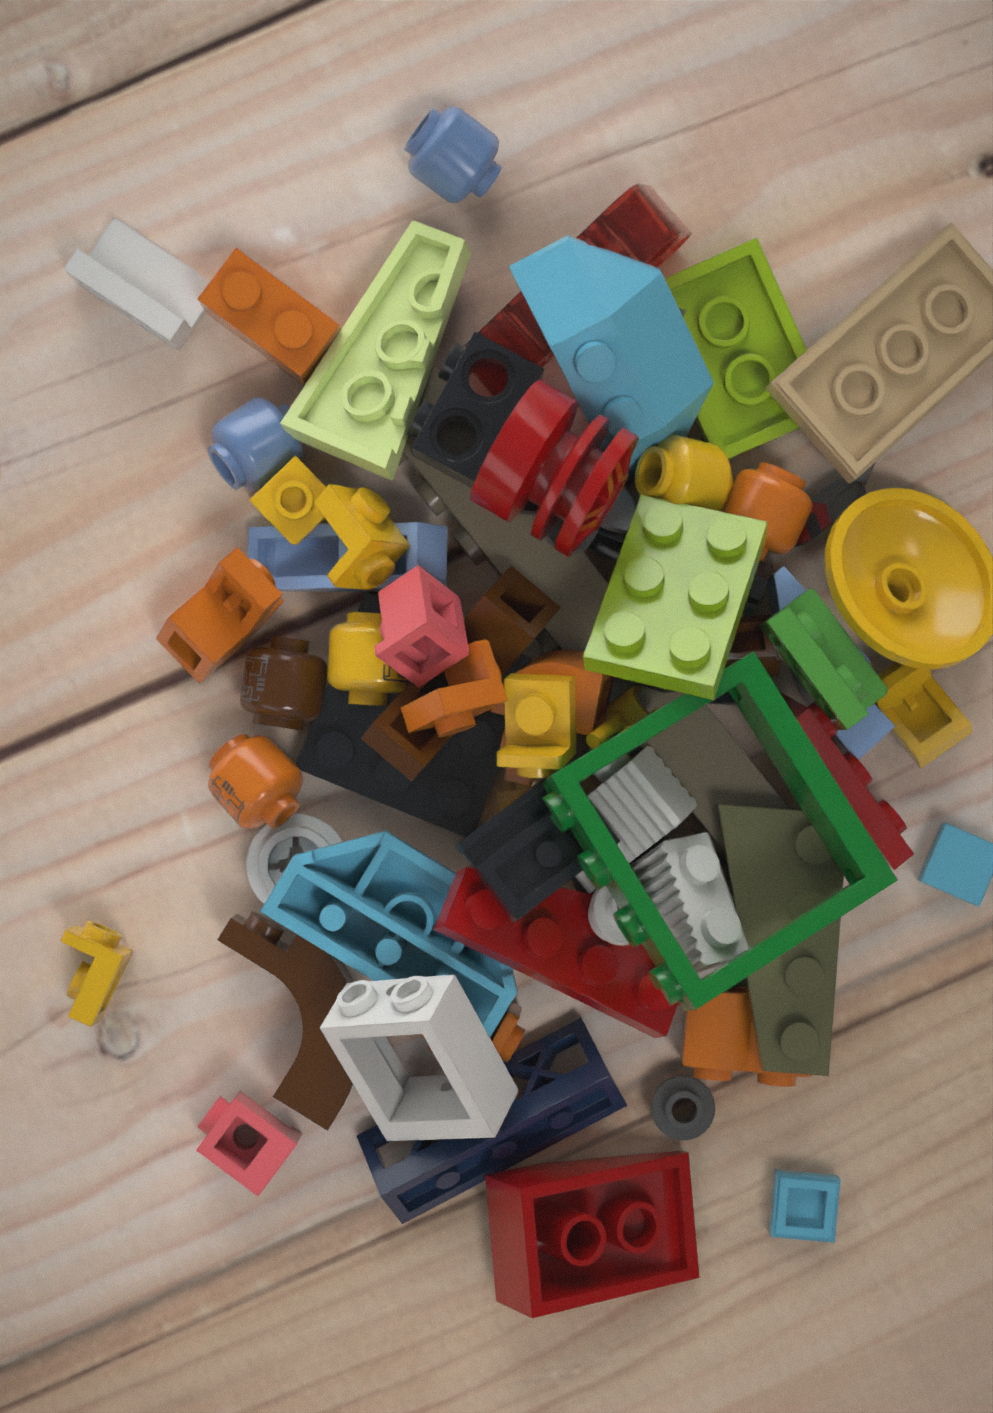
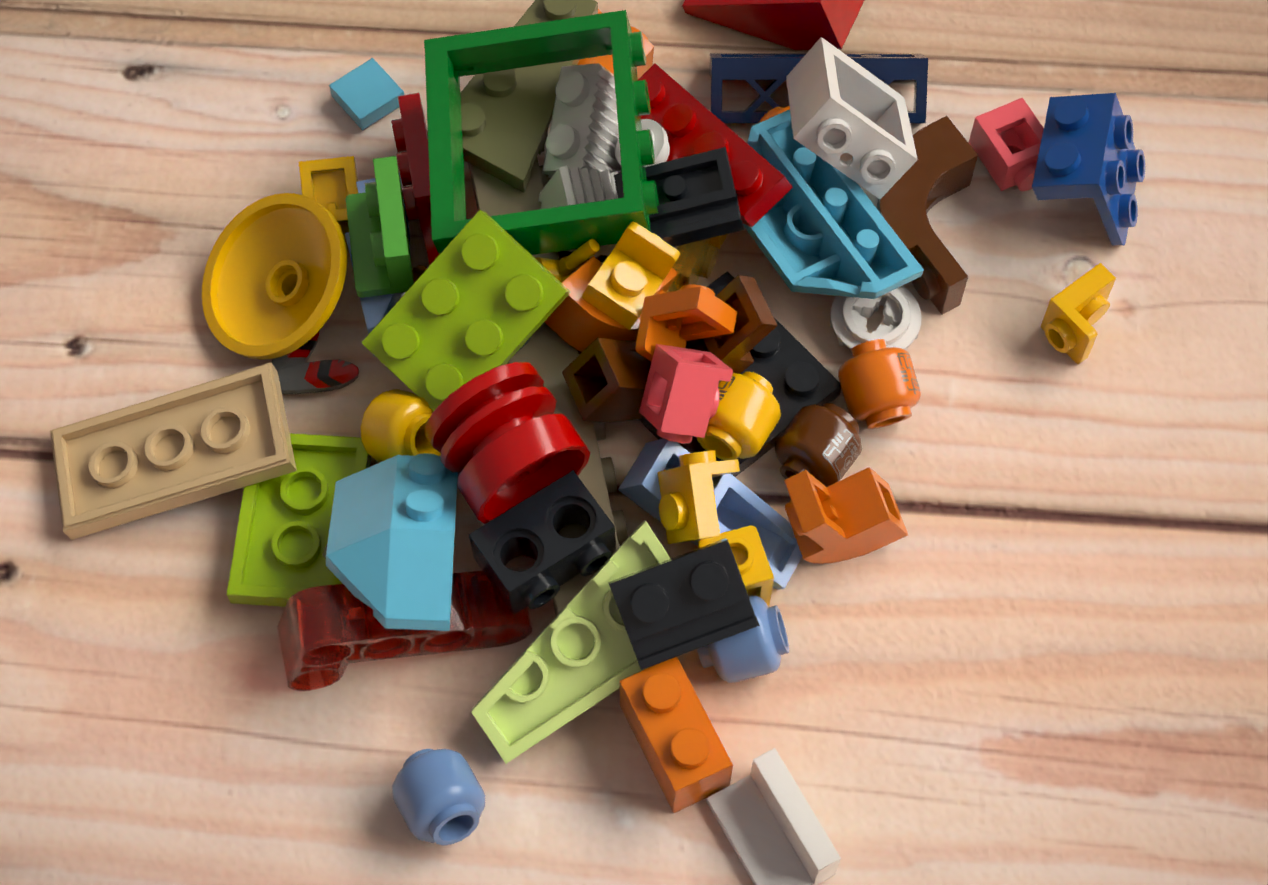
camera: 150 degrees left, 25 degrees down
(153, 1147) = (1091, 155): none -> blue bracket
(313, 417) = (683, 603): none -> black plate
(674, 1089) = (670, 45): dark grey plate -> none
(773, 497) = (349, 383): orange head -> none

